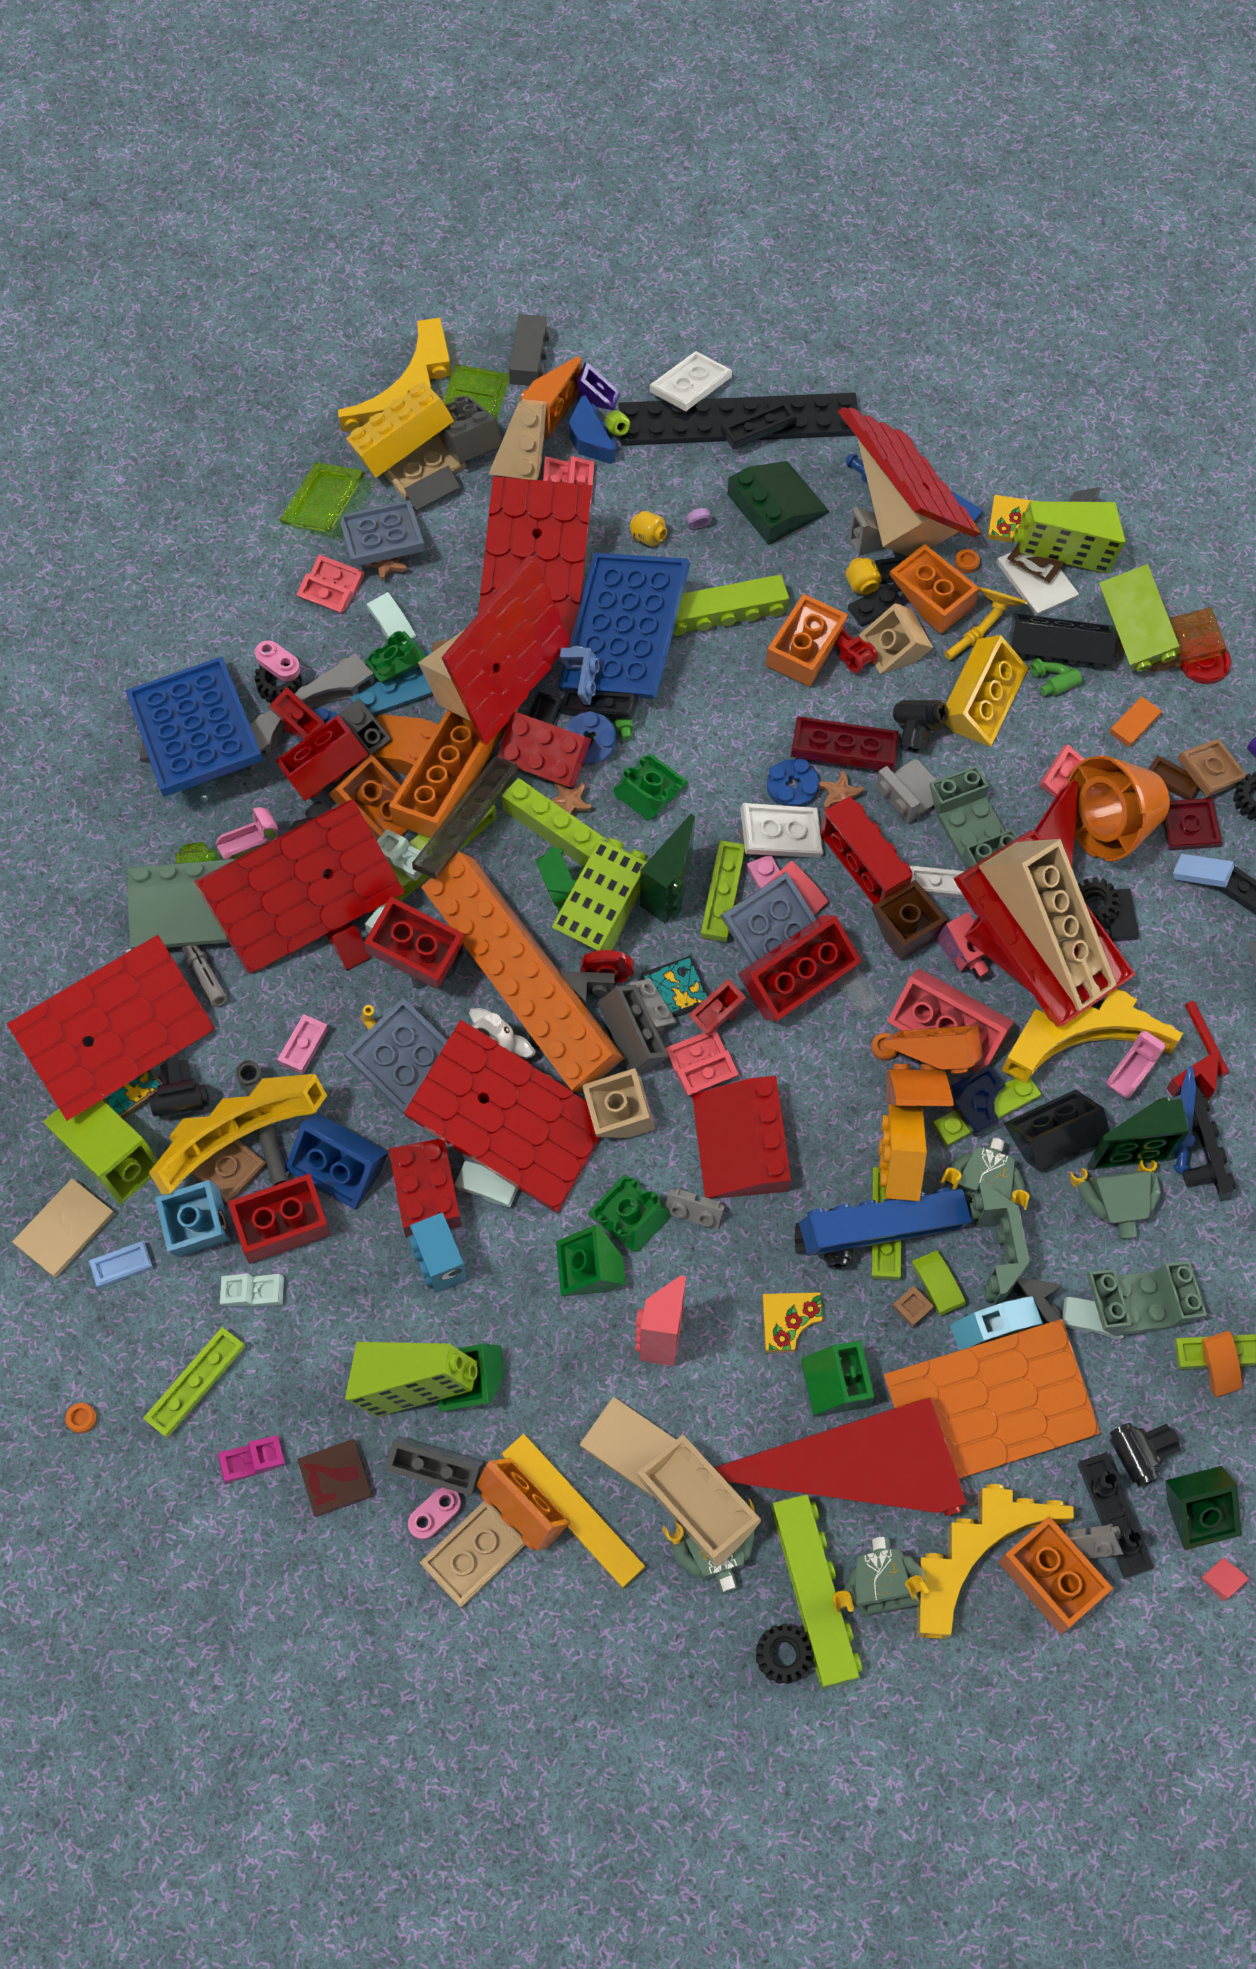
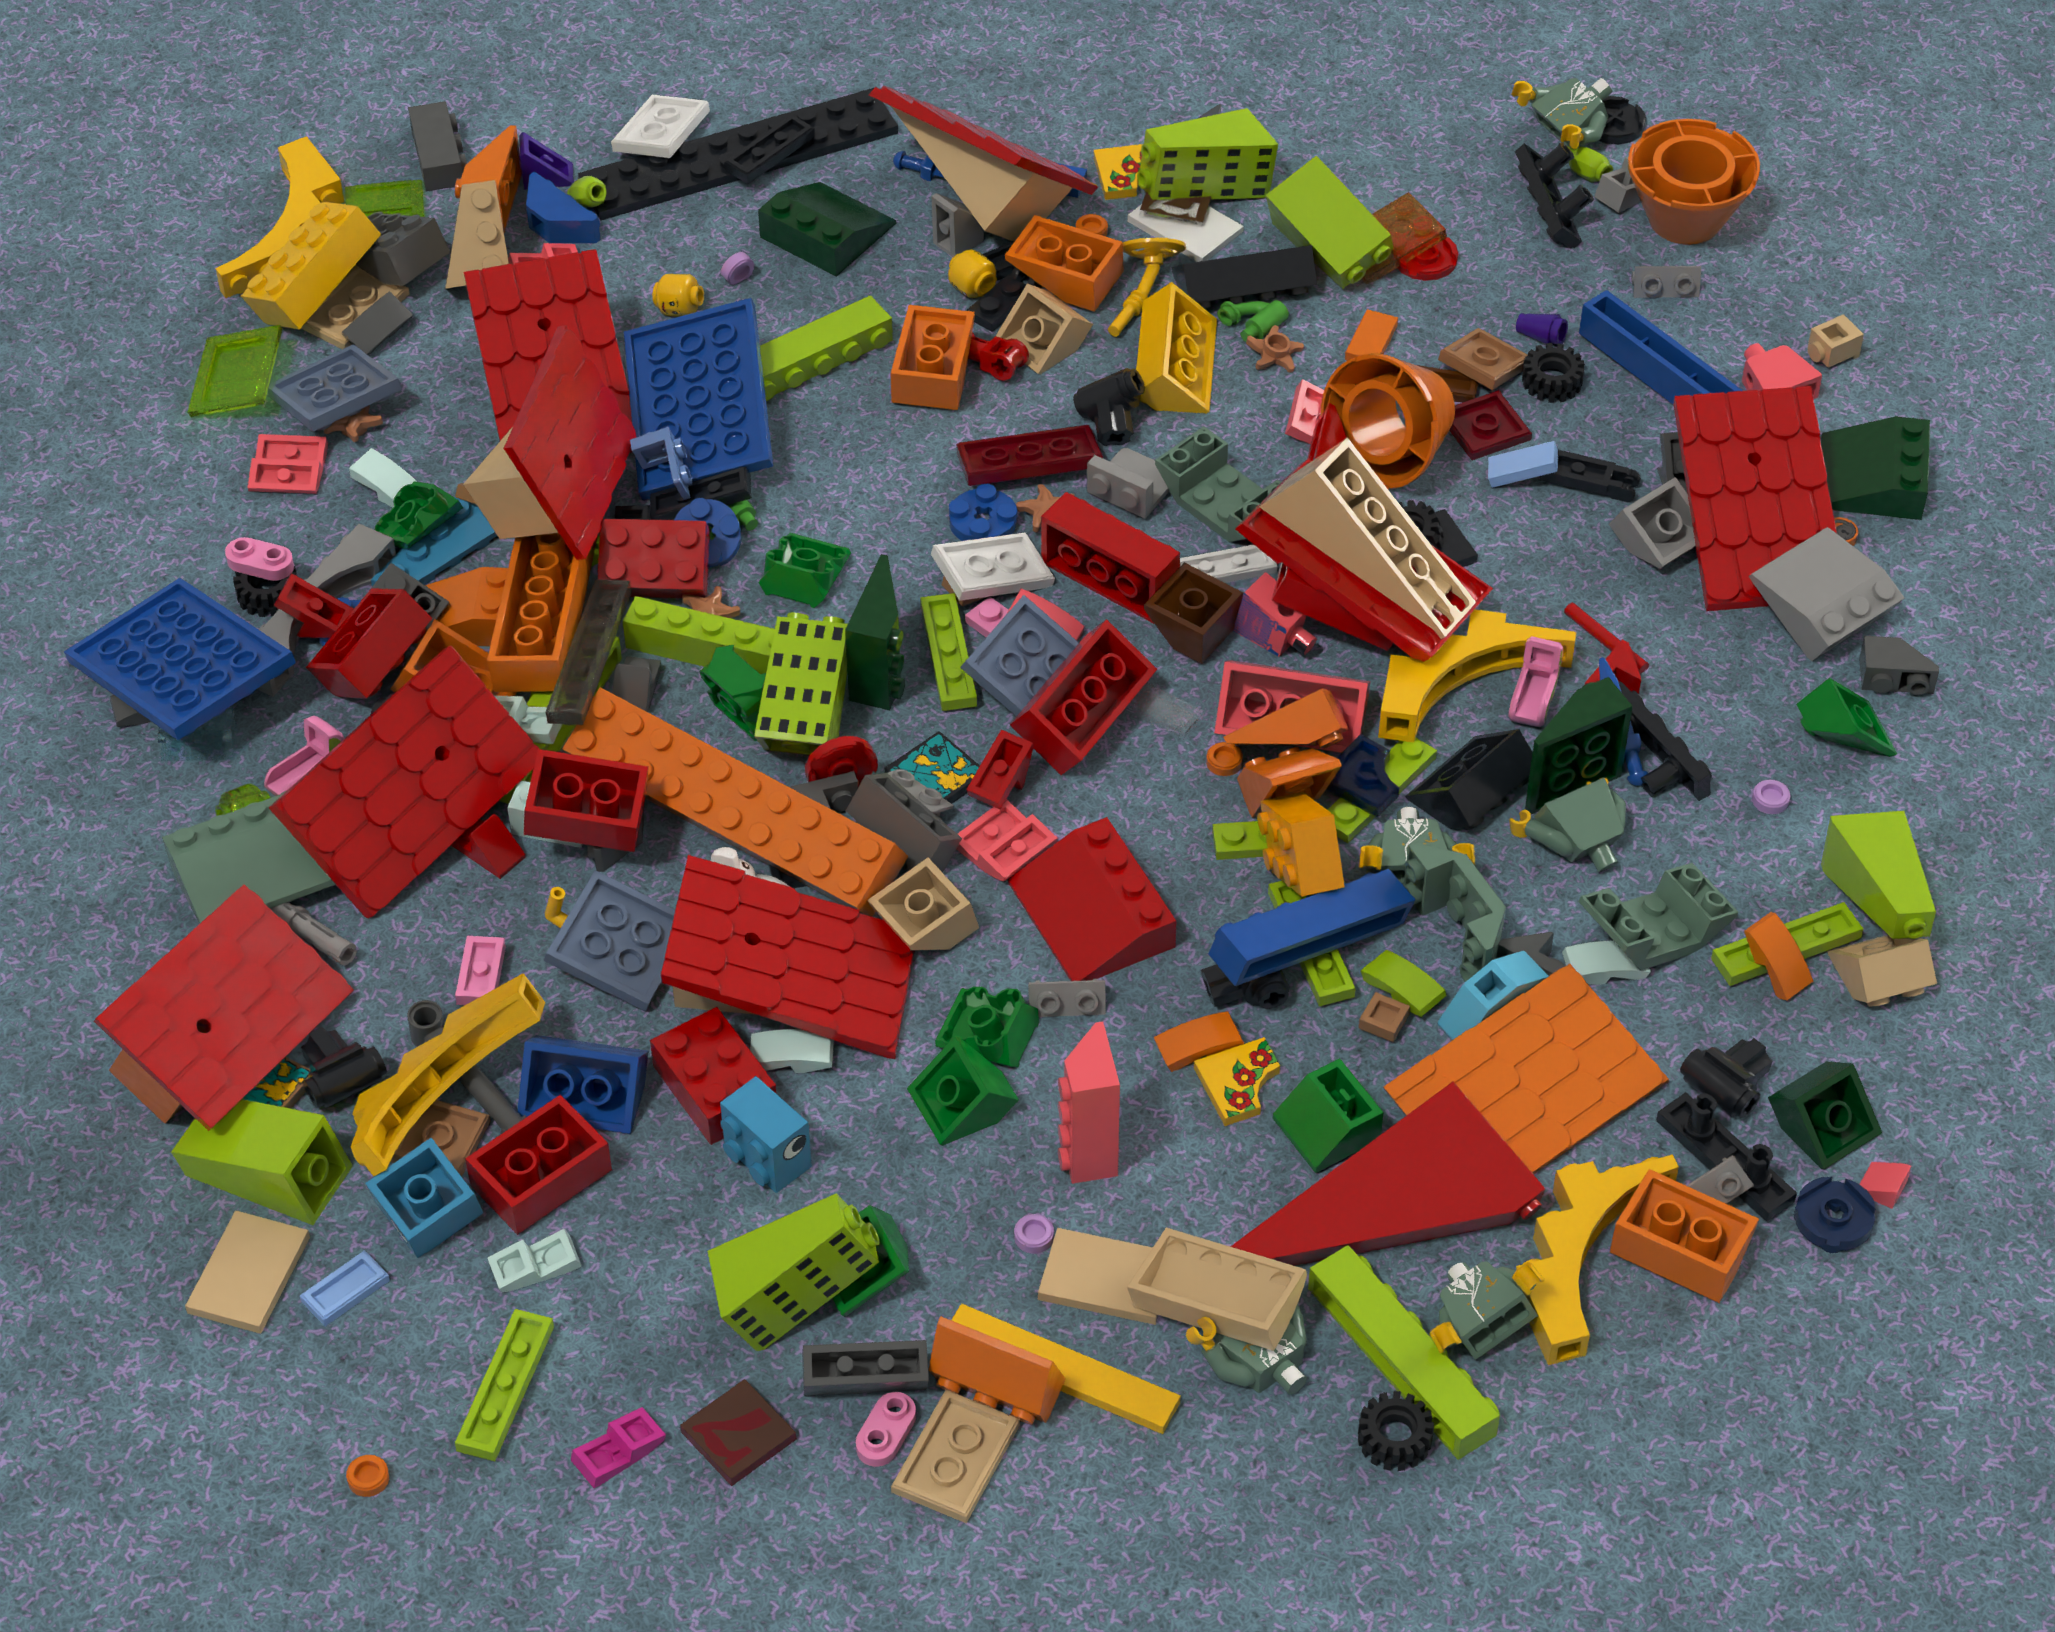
camera: 20 degrees left, 15 degrees down
(495, 846) = (637, 680): none -> dark grey slope
(596, 1393) = (1034, 1233): none -> lavender tile
(772, 1277) = (1198, 1038): none -> orange slope
(866, 1118) = (1238, 840): none -> lime plate
(1059, 709) = (1275, 349): none -> nougat animal
(1186, 1579) = (1833, 1233): none -> dark blue plate

